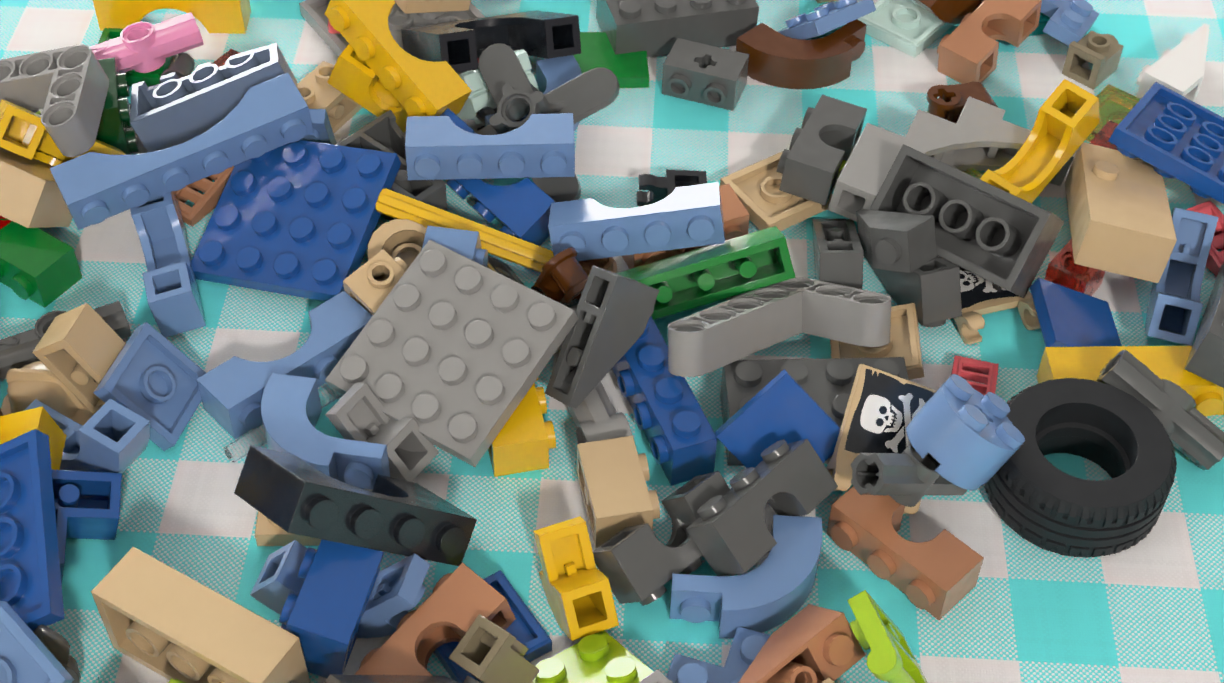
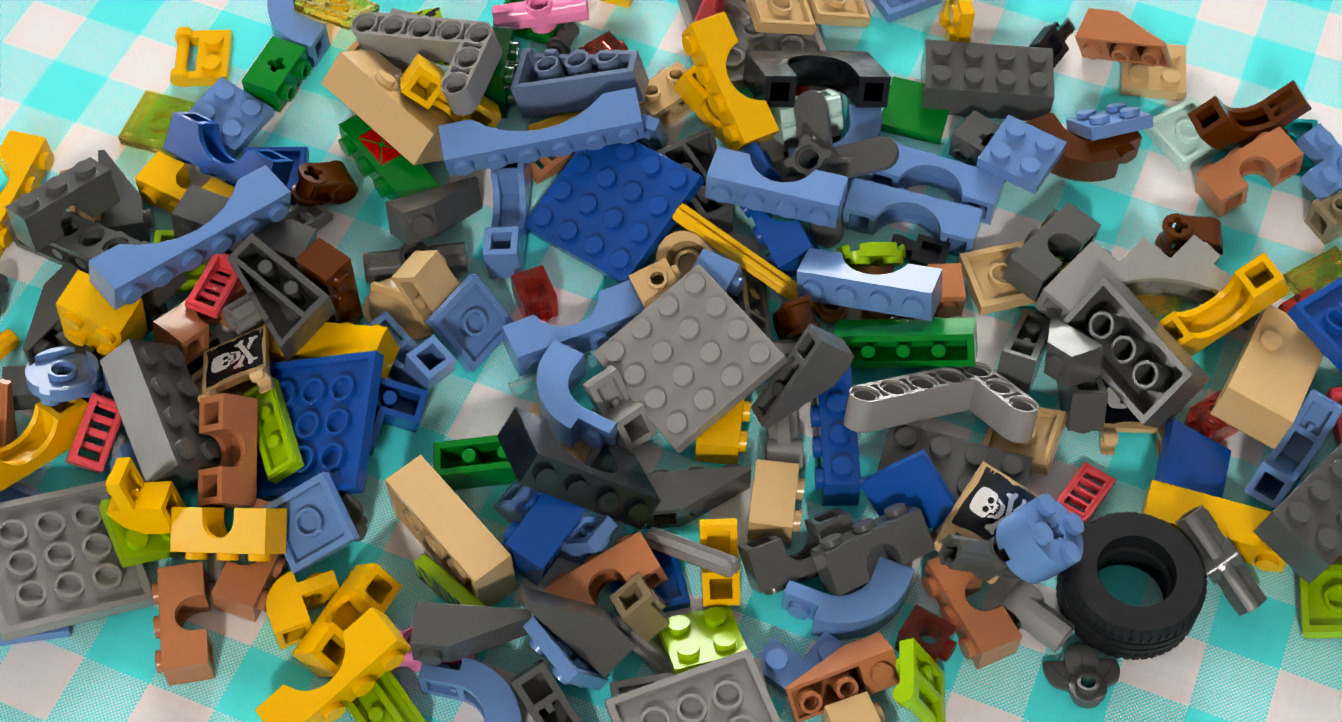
camera: 20 degrees right, 10 degrees up
(65, 274) = (433, 210): none -> dark grey slope
(219, 541) = (472, 463): none -> green brick
(226, 334) = (534, 284): none -> clear red brick
(512, 508) = (694, 492): none -> dark grey slope
(542, 573) = (692, 552): none -> light grey axle
(610, 153) = (877, 205): none -> medium blue arch
(631, 191) = (874, 254): none -> lime plate
(704, 115) = (961, 181): none -> medium blue arch
(748, 64) = (1021, 154): none -> medium blue plate
(879, 582) = (925, 623): none -> clear red brick
(988, 536) = (1031, 613): none -> light grey piece
(1067, 587) = (1082, 674): none -> dark grey plate

